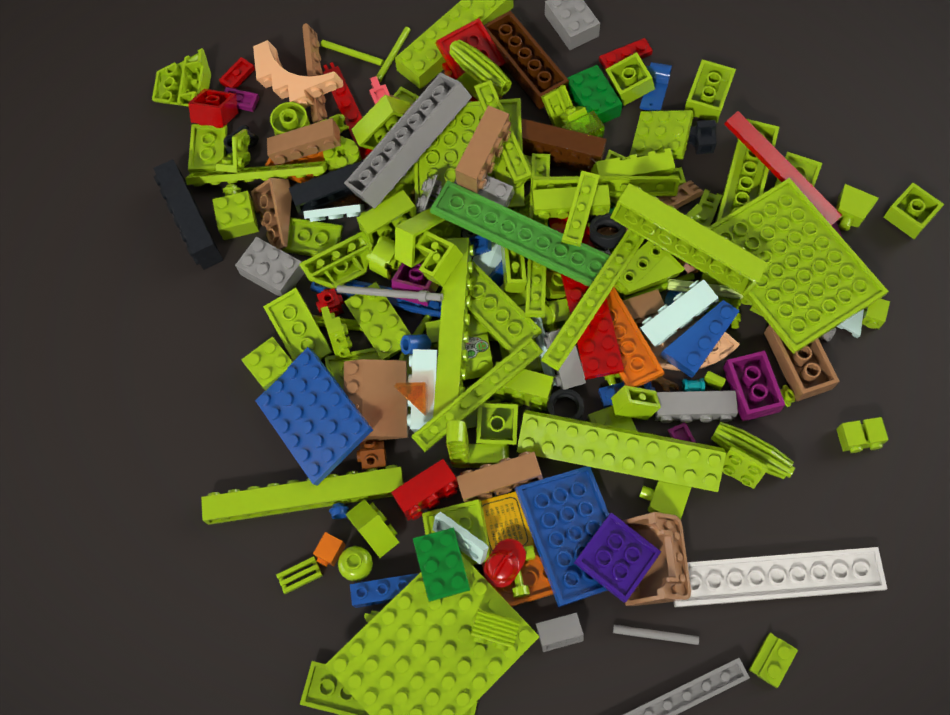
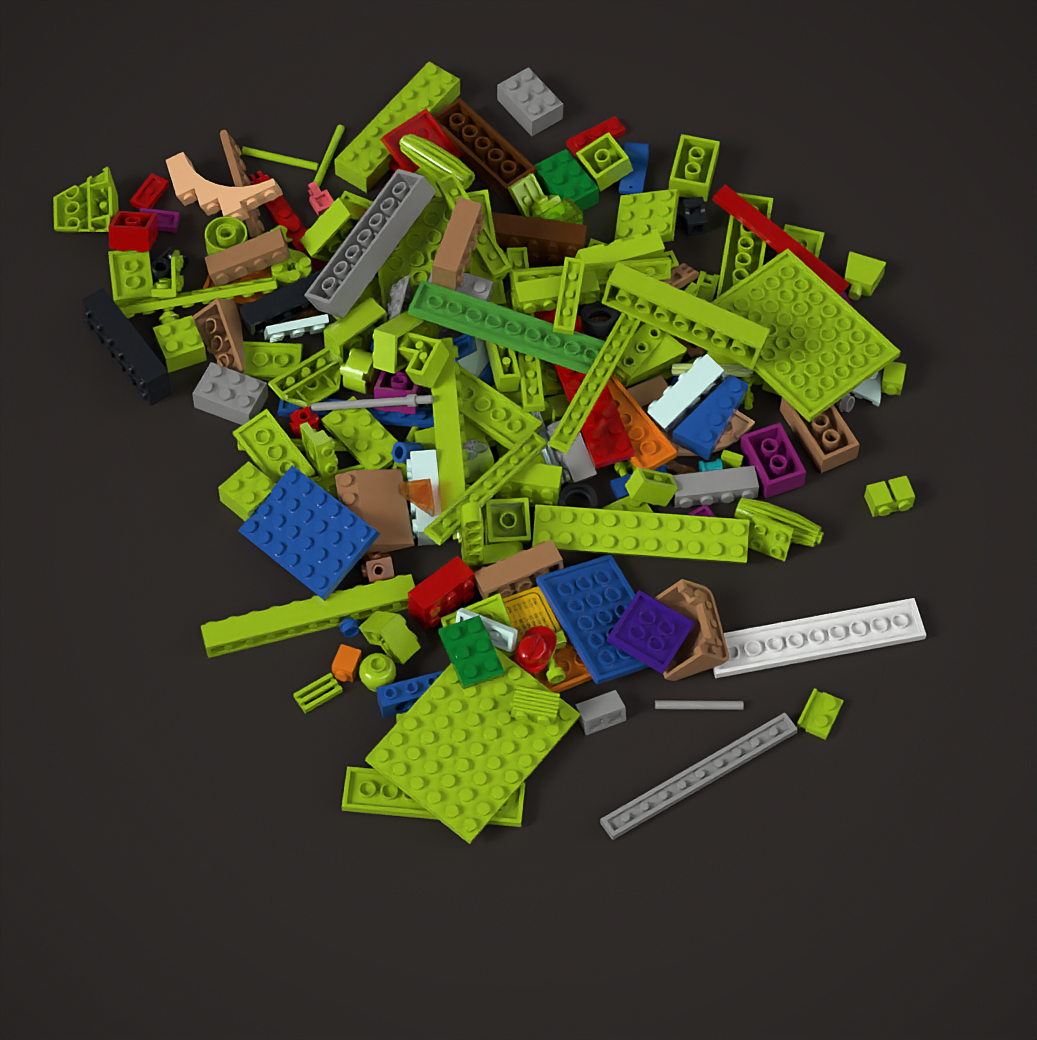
camera: 15 degrees left, 10 degrees down
(666, 498) = (696, 571): lime torso -> none
(788, 395) = (810, 467): lime plate -> none
(913, 210) = (924, 272): lime brick -> none

